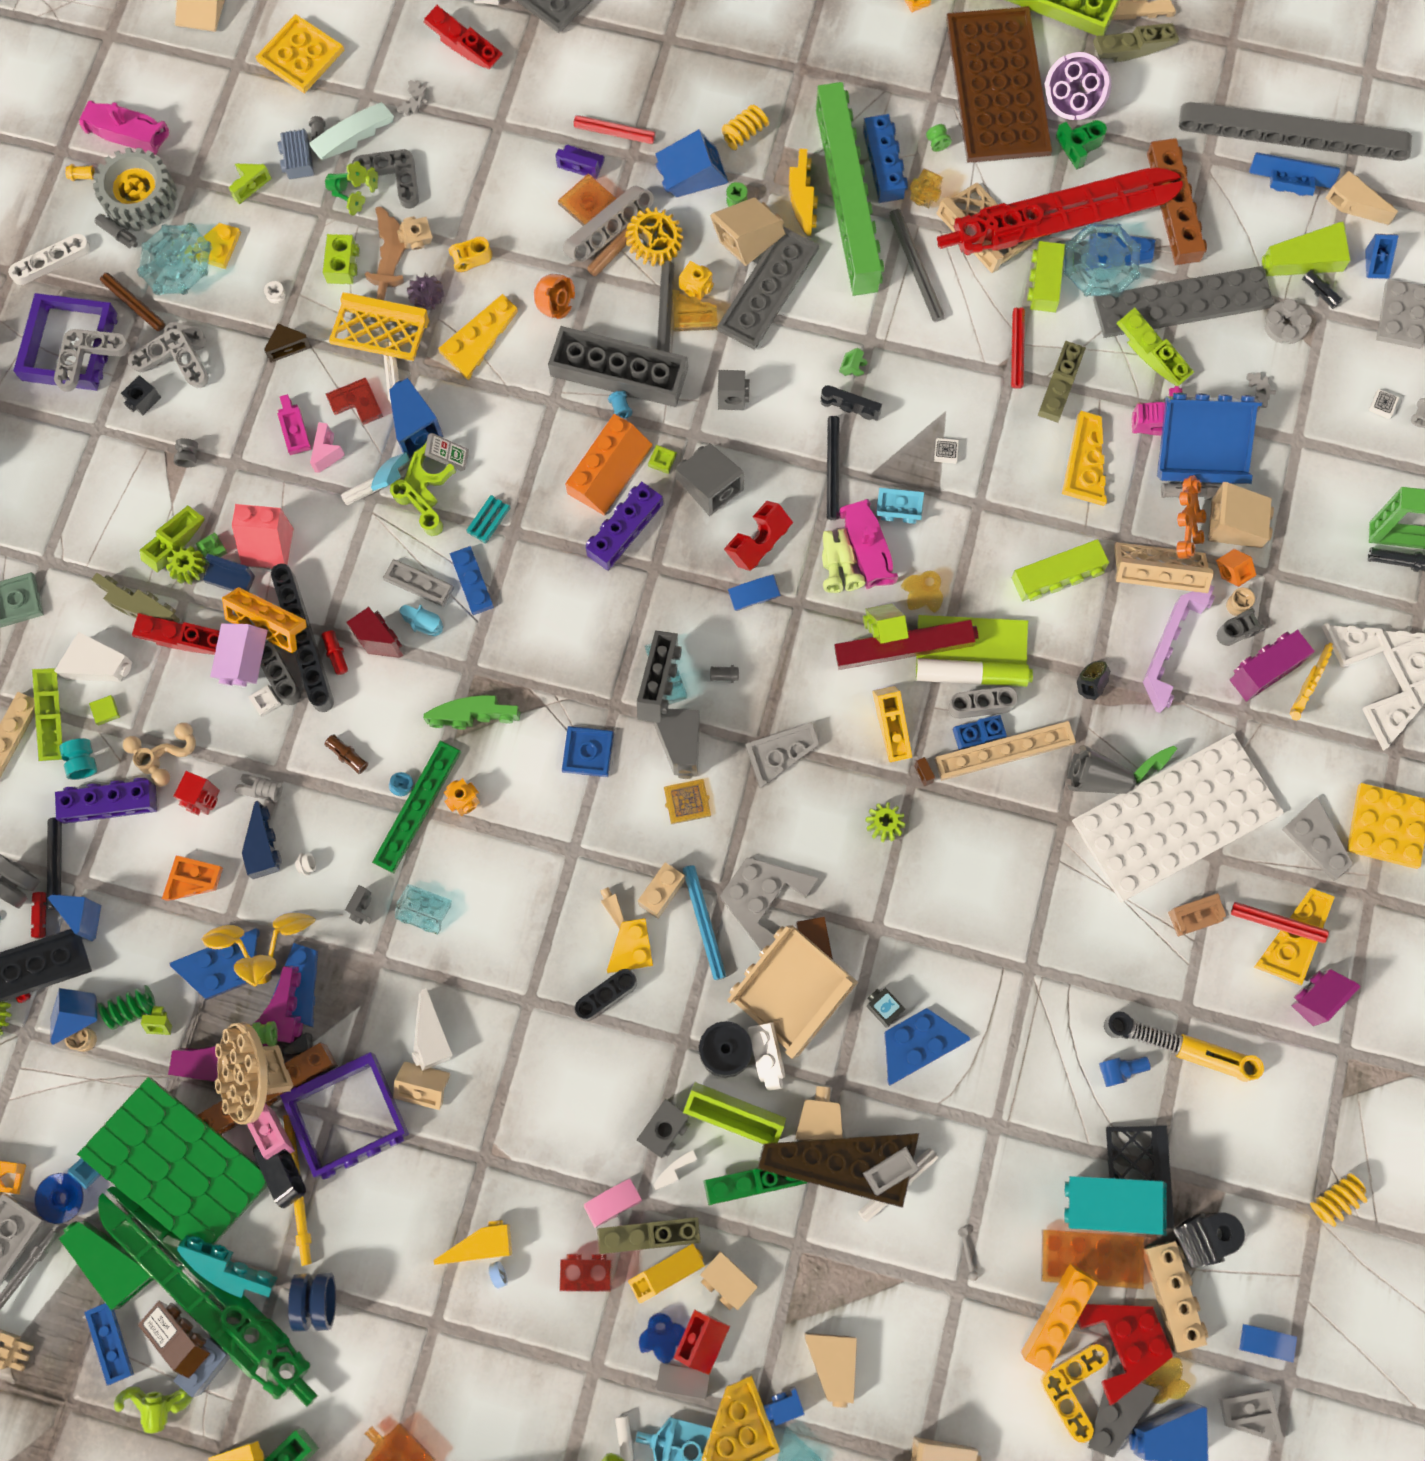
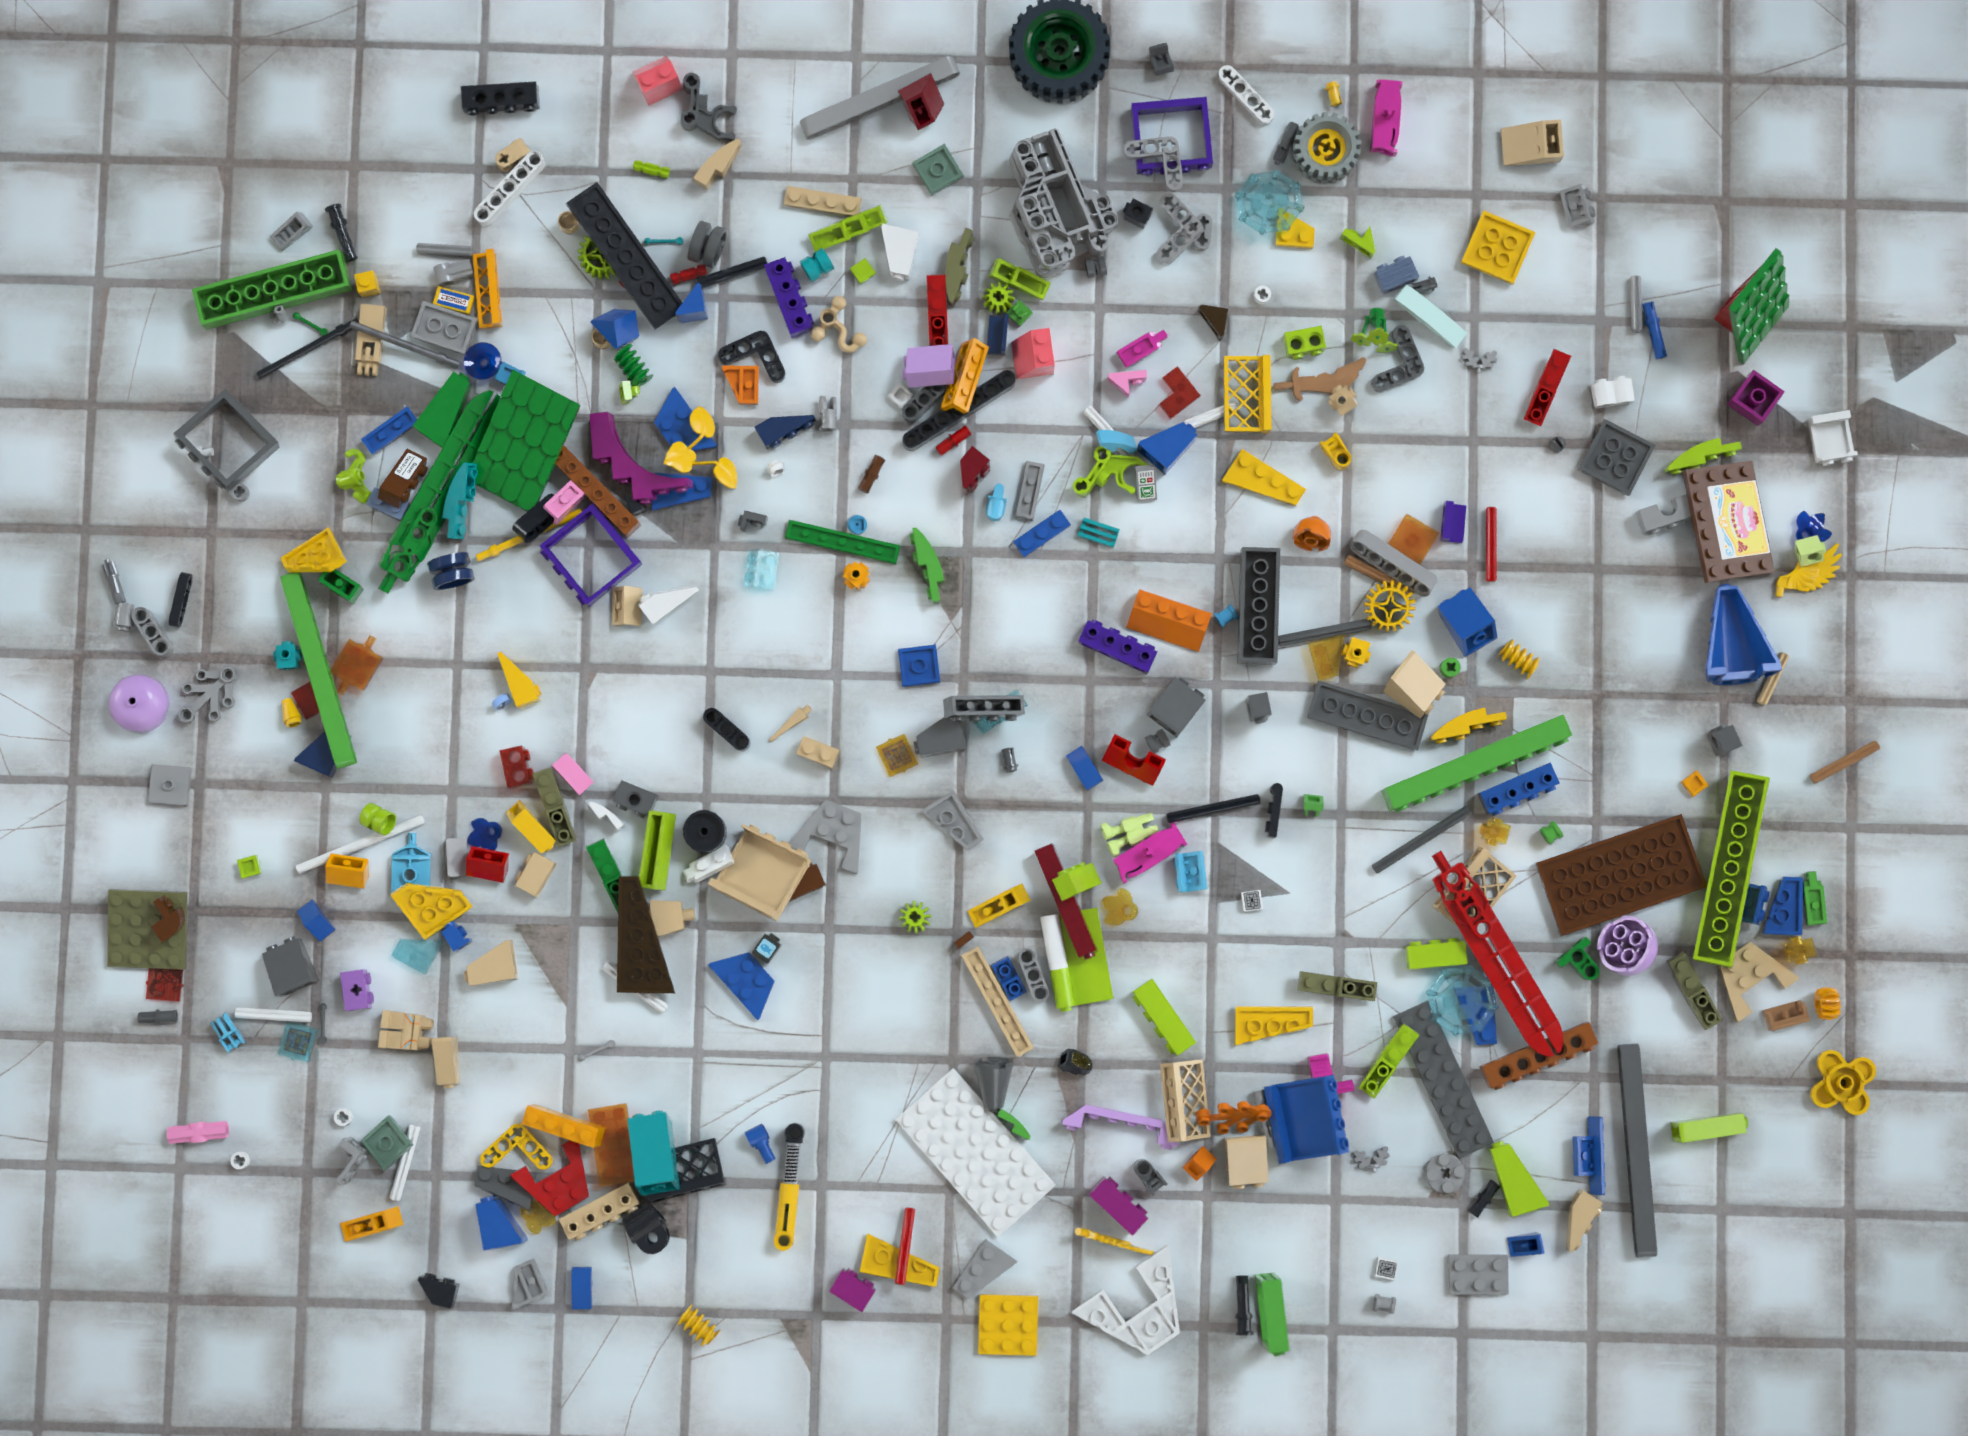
camera: 75 degrees right, 10 degrees up
(55, 480) = (1038, 208): none -> light grey connector
(132, 301) = (1223, 178): reddish brown axle -> none
(158, 849) = (760, 348): none -> black beam
(196, 794) = (808, 368): red brick -> none
(248, 1073) = (600, 476): tan bracket -> none
(266, 1032) = (633, 478): bright green wheel -> none
(425, 292) = (1288, 416): clear purple gear -> none
(526, 45) = (1554, 446): none -> dark grey hinge
(631, 947) = (768, 740): yellow wing -> none
(662, 459) = (1187, 663): lime tile -> none
(704, 922) = (801, 792): dark azure axle -> none
(743, 507) = (1154, 744): none -> dark grey wheel
(891, 1171) = (640, 977): light grey tile -> none
(1018, 339) = (1363, 943): red axle -> none
(1197, 915) = (897, 1180): medium nougat hinge -> none
(1240, 596) = (1171, 1172): tan wheel -> none
(1283, 60) = (1708, 1127): none -> lime slope

